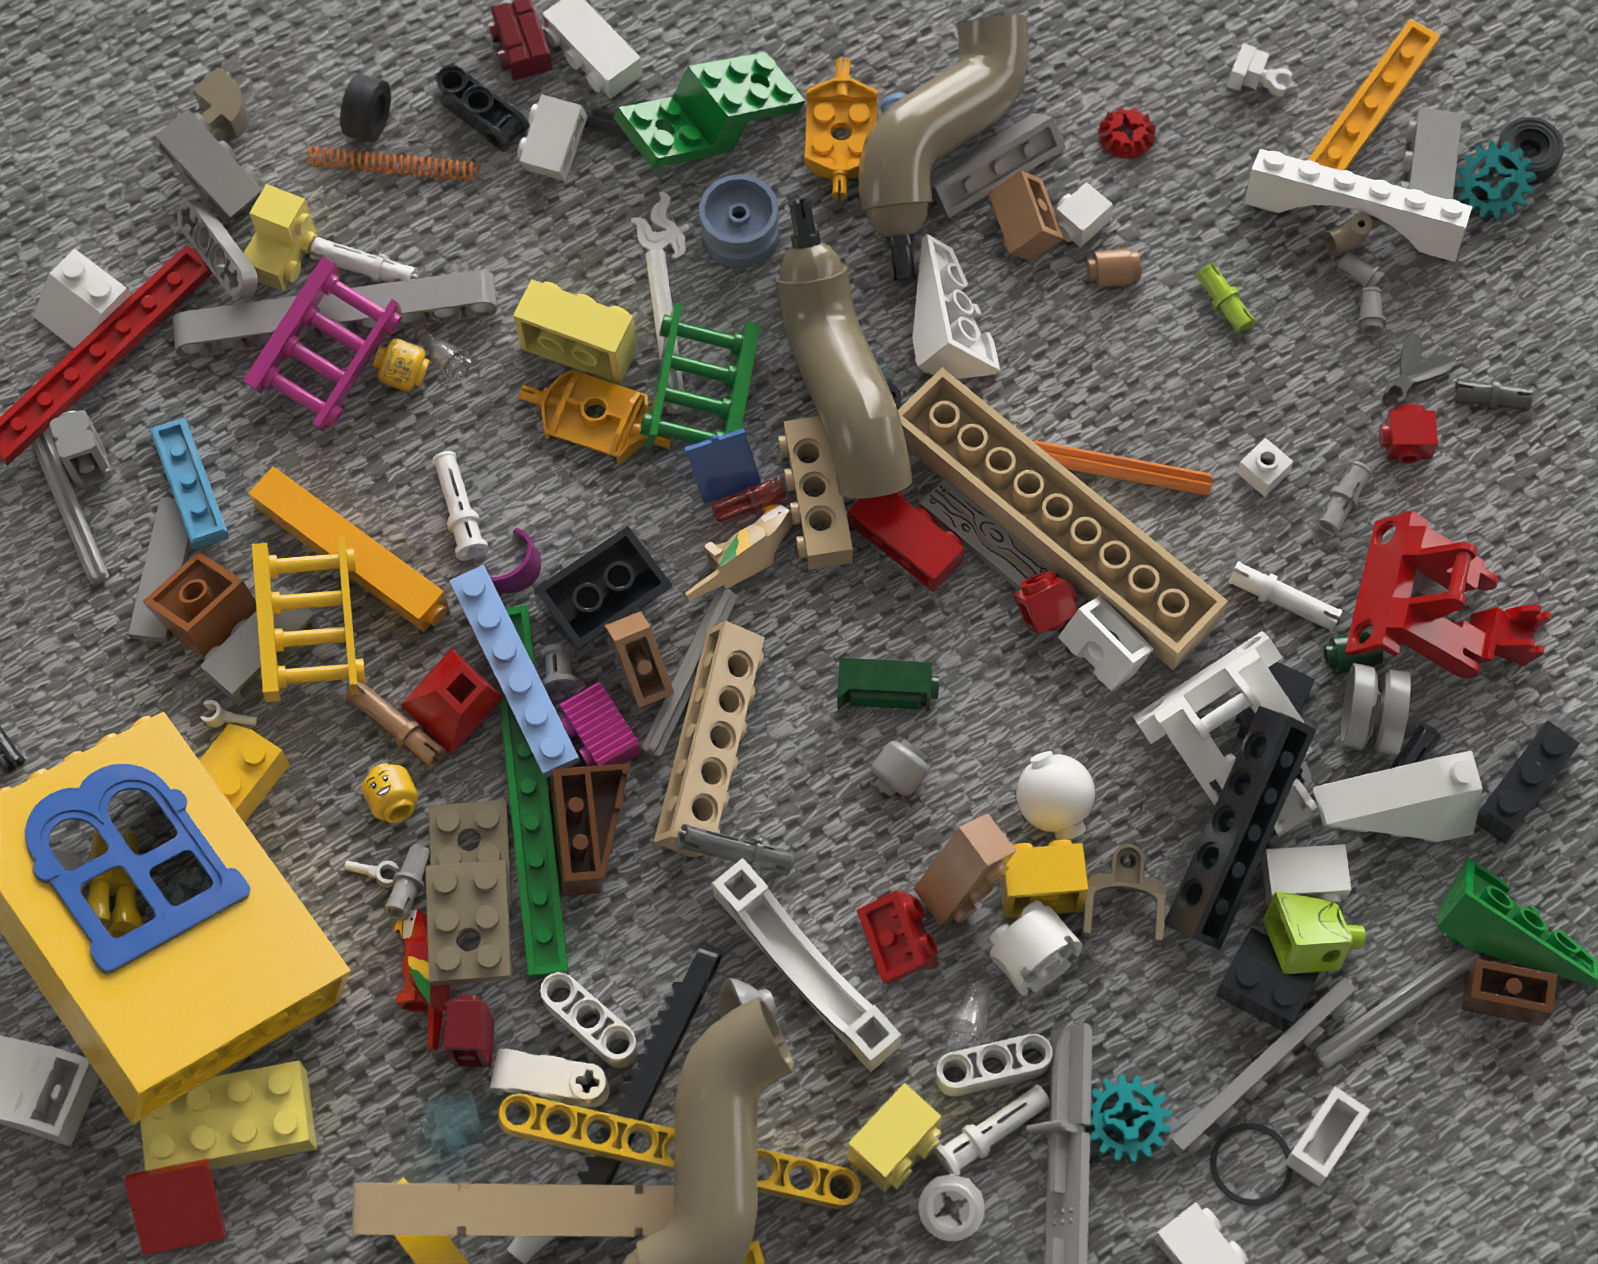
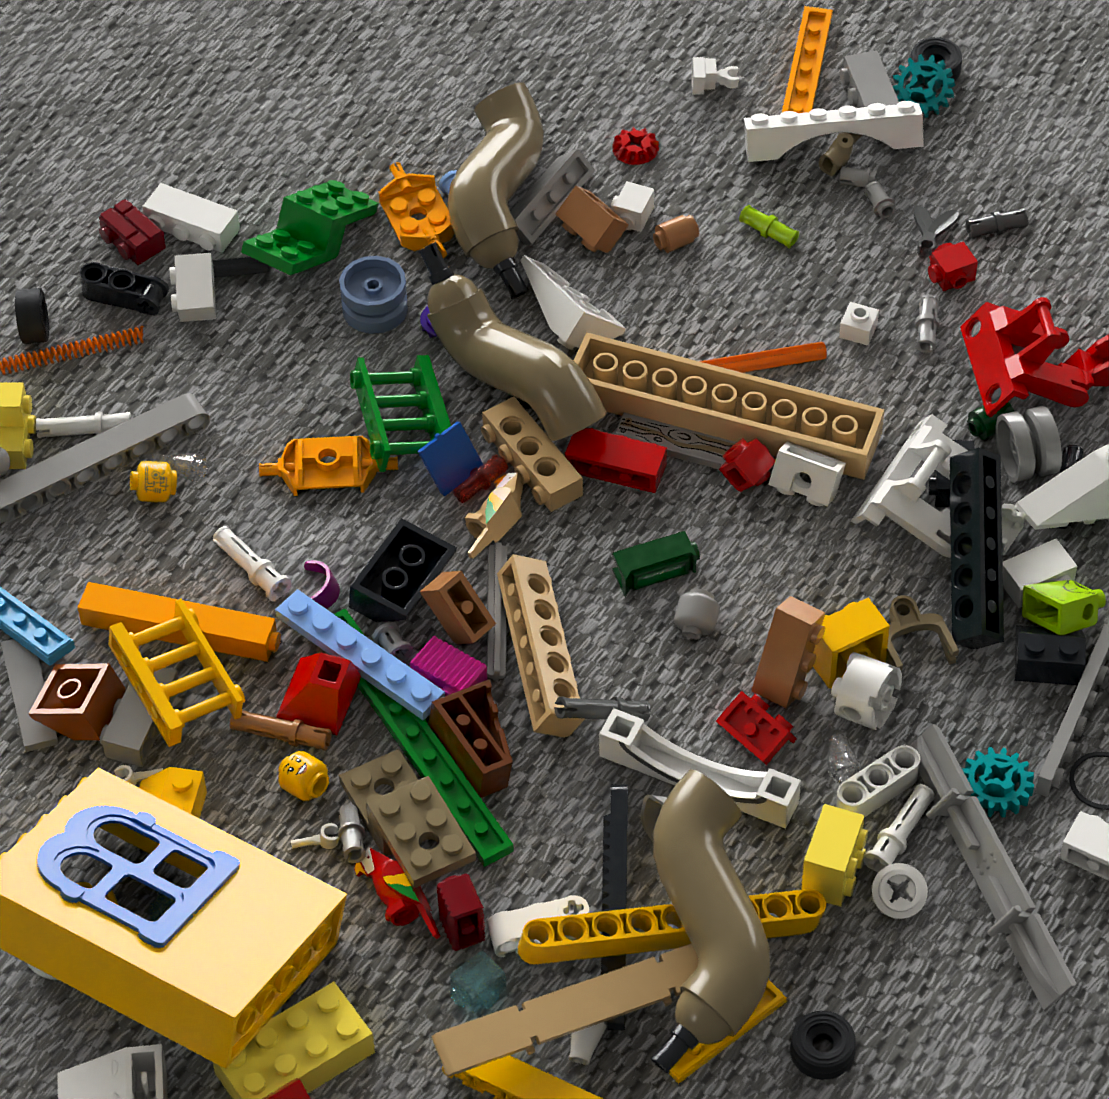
camera: 25 degrees left, 15 degrees down
(286, 343) = (62, 463): dark pink fence -> none
(576, 331) = (285, 407): light yellow brick -> none
(581, 1003) = (538, 861): white beam -> none
(660, 240) = (315, 332): white piece -> none
(663, 305) = (340, 375): white axle -> none
(1056, 795) = (825, 581): white brick -> none
(1284, 596) = (919, 401): white pin -> none

